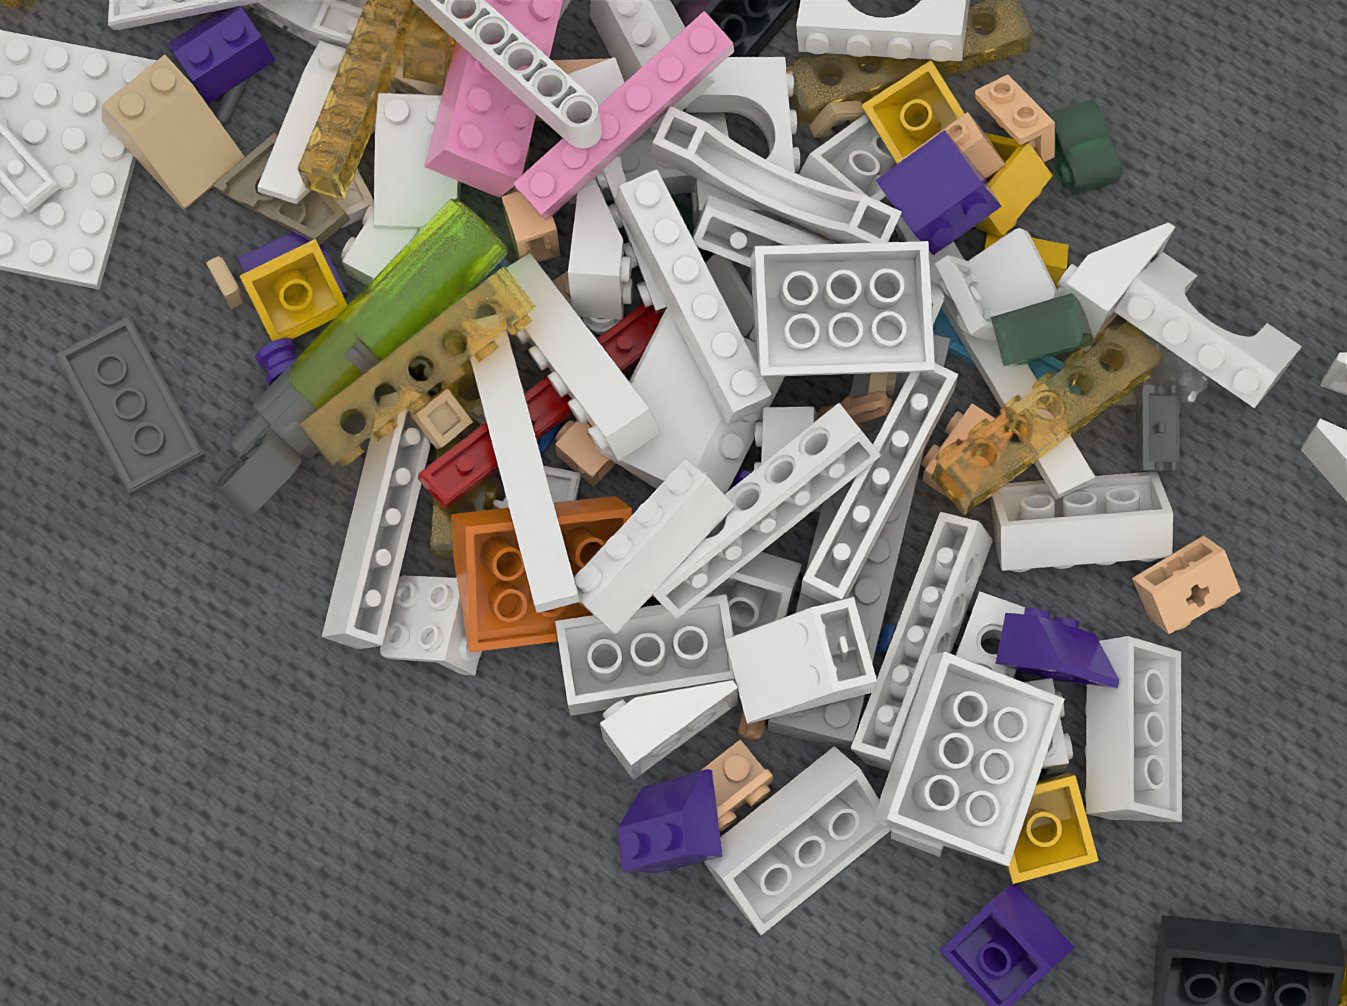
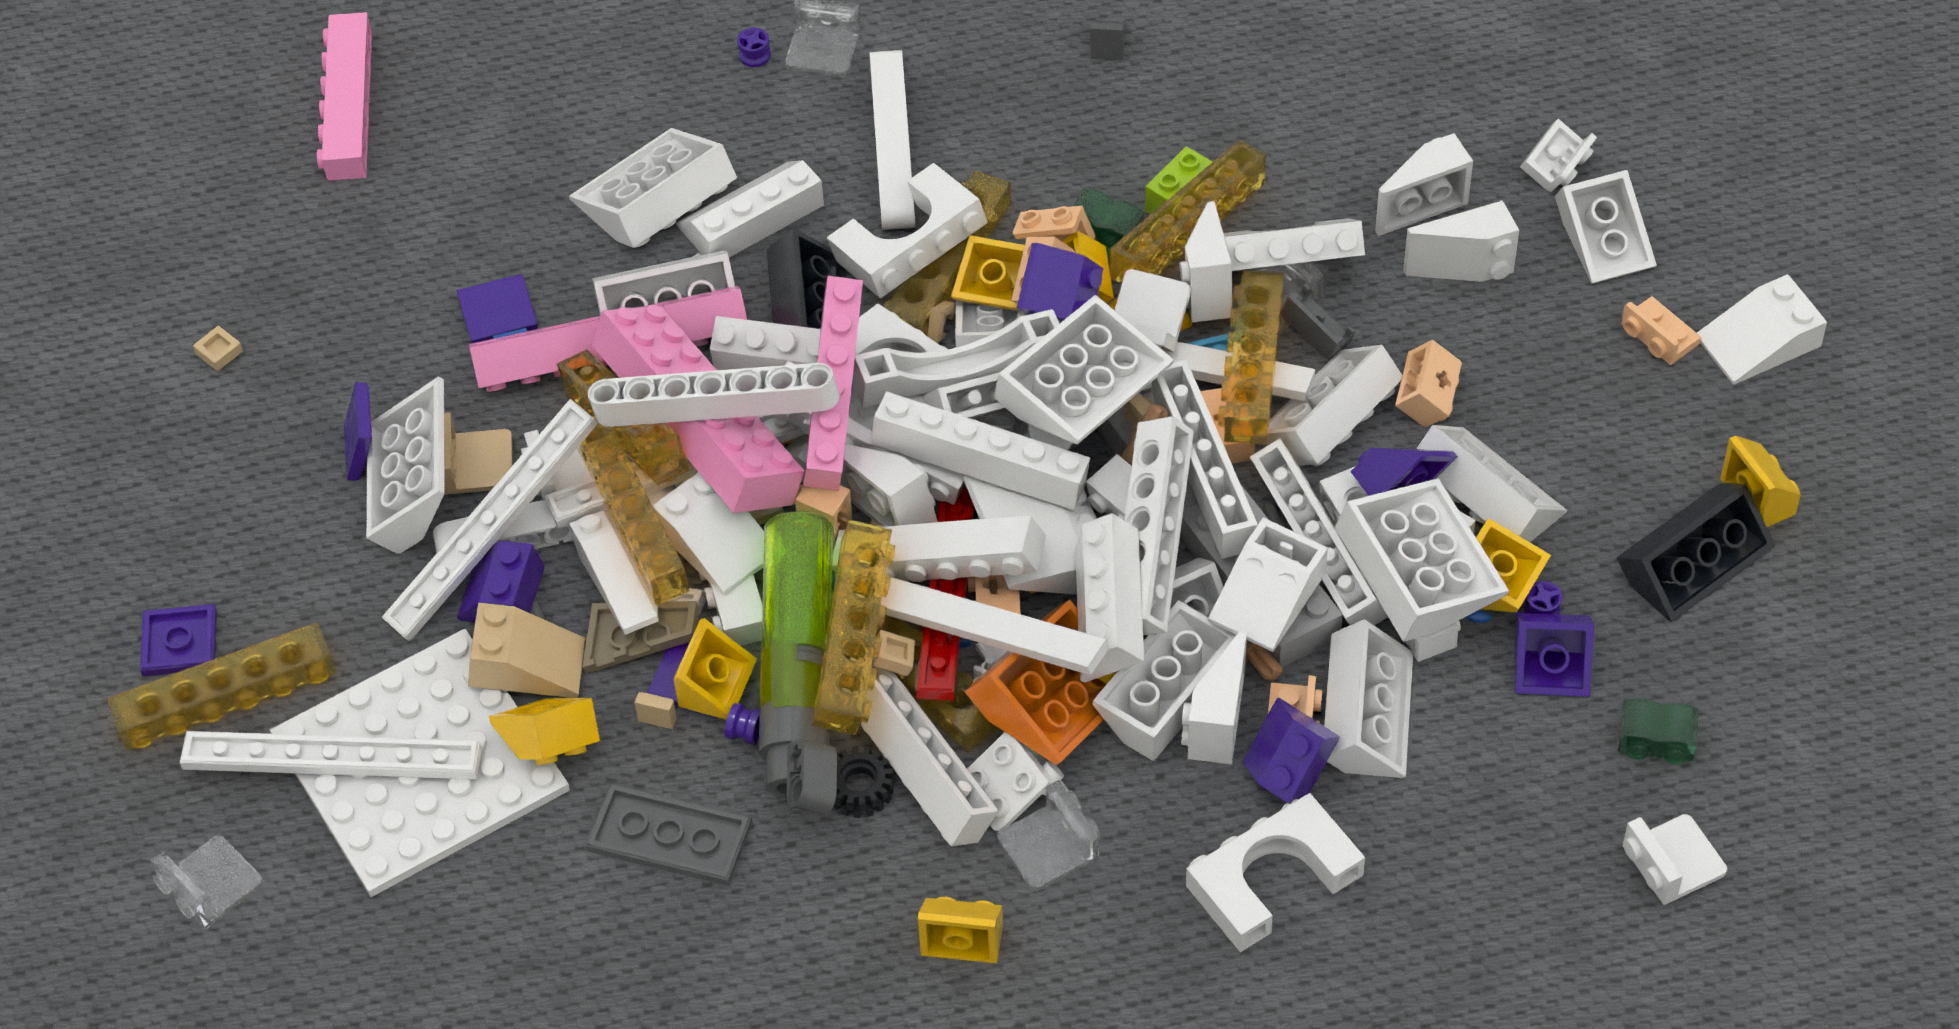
camera: 45 degrees left, 20 degrees down
(118, 219) = (548, 728): none -> yellow slope
(251, 716) = (960, 929): none -> yellow slope
(305, 482) = (866, 799): none -> black tyre
(405, 708) = (1051, 839): none -> clear bracket
(503, 879) = (1296, 830): none -> white arch
(1042, 330) = (1202, 310): clear green brick -> none
(1057, 886) = (1545, 594): none -> dark purple wheel
(1119, 212) = (1167, 230): none -> clear yellow brick
(1185, 172) = (1173, 178): none -> lime brick

